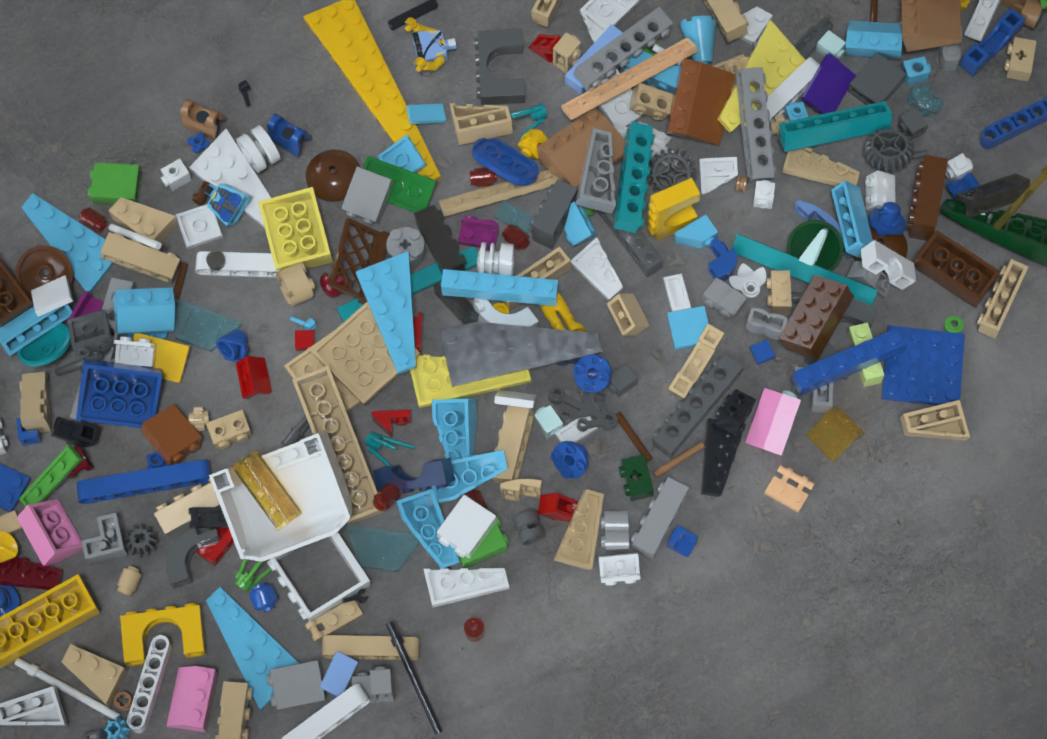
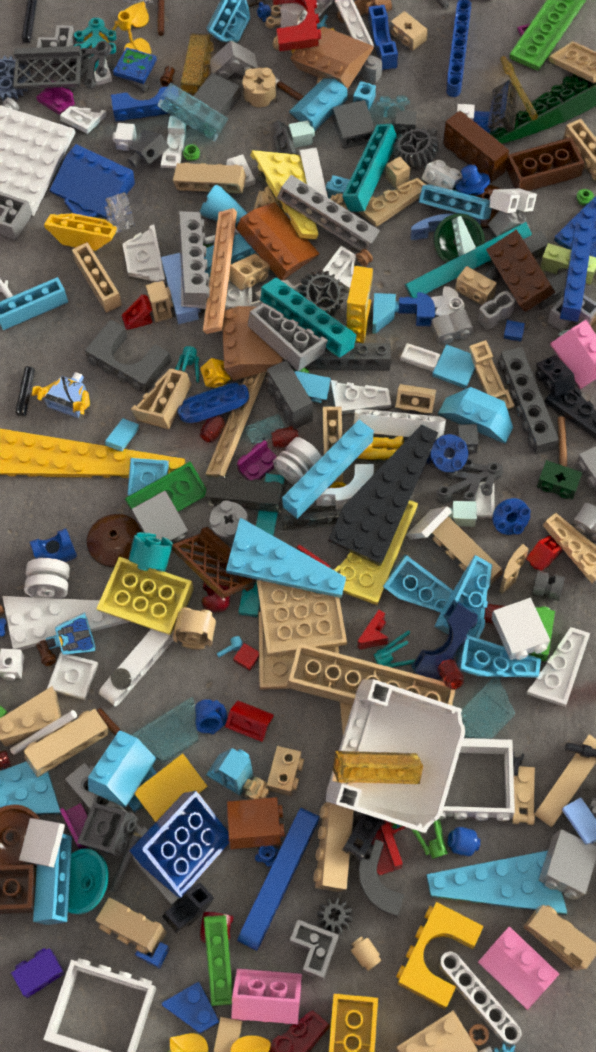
camera: 55 degrees left, 5 degrees down
(135, 353) = (153, 804): white bracket -> none
(198, 391) = (231, 770): none -> medium azure wedge
(297, 432) = (328, 716): dark grey axle -> none
(330, 206) = (150, 551): none -> teal brick
(594, 316) = (398, 423): none -> white beam
(634, 438) = (520, 462): reddish brown bar -> none
(655, 375) = (481, 409): none -> medium azure wedge
(764, 194) = (386, 247): white brick -> none
(828, 85) = (332, 153): dark purple tile -> none
(851, 152) = (397, 172): none -> tan brick

